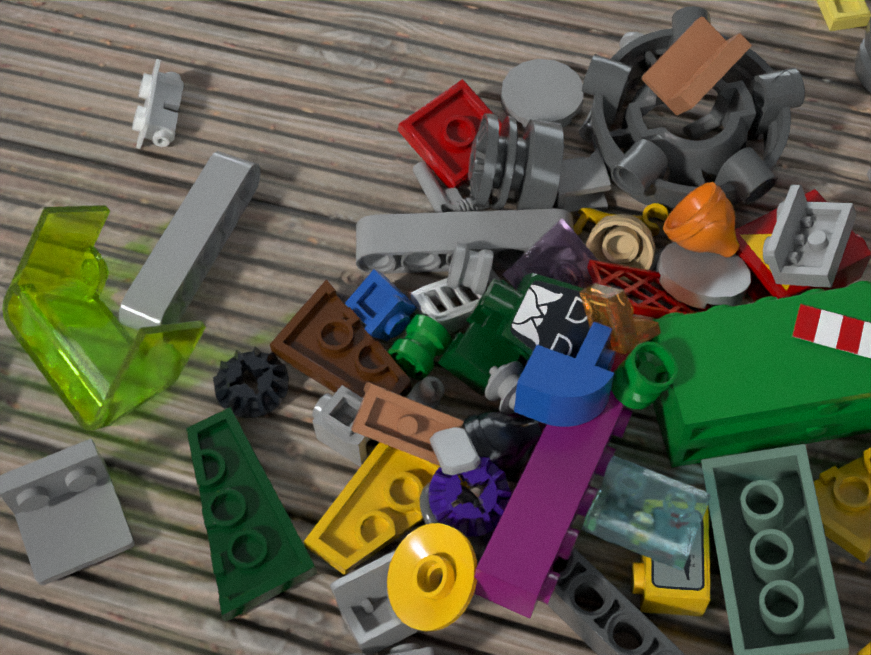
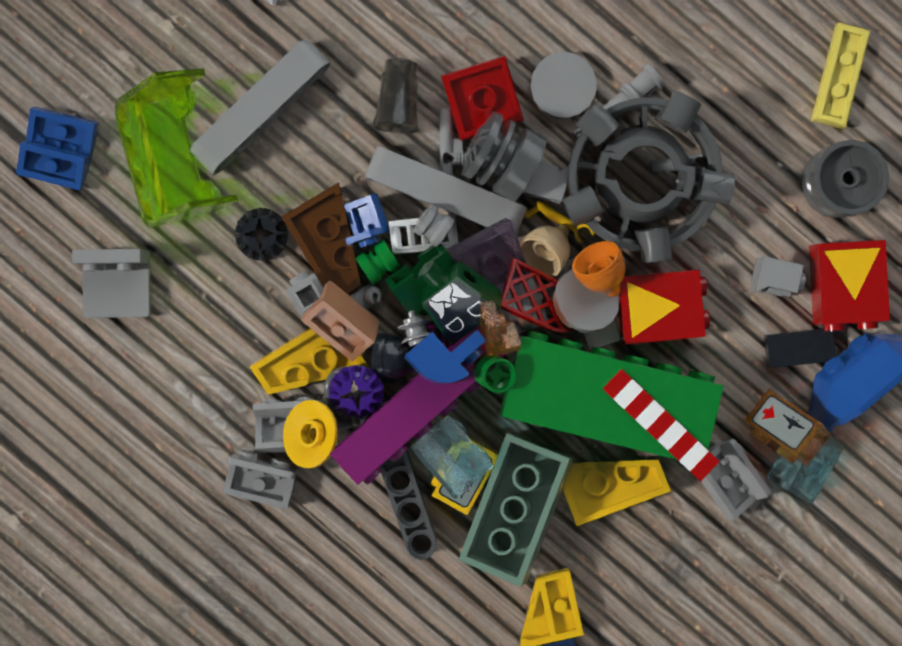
camera: 20 degrees right, 30 degrees up
(246, 525) = (221, 329): dark green wing -> none
(360, 174) = (398, 98): none -> clear smoke plant
(454, 451) = (357, 364): light grey piece -> none
(693, 65) = (661, 149): nougat panel -> none
(808, 240) = (663, 315): light grey bracket -> none

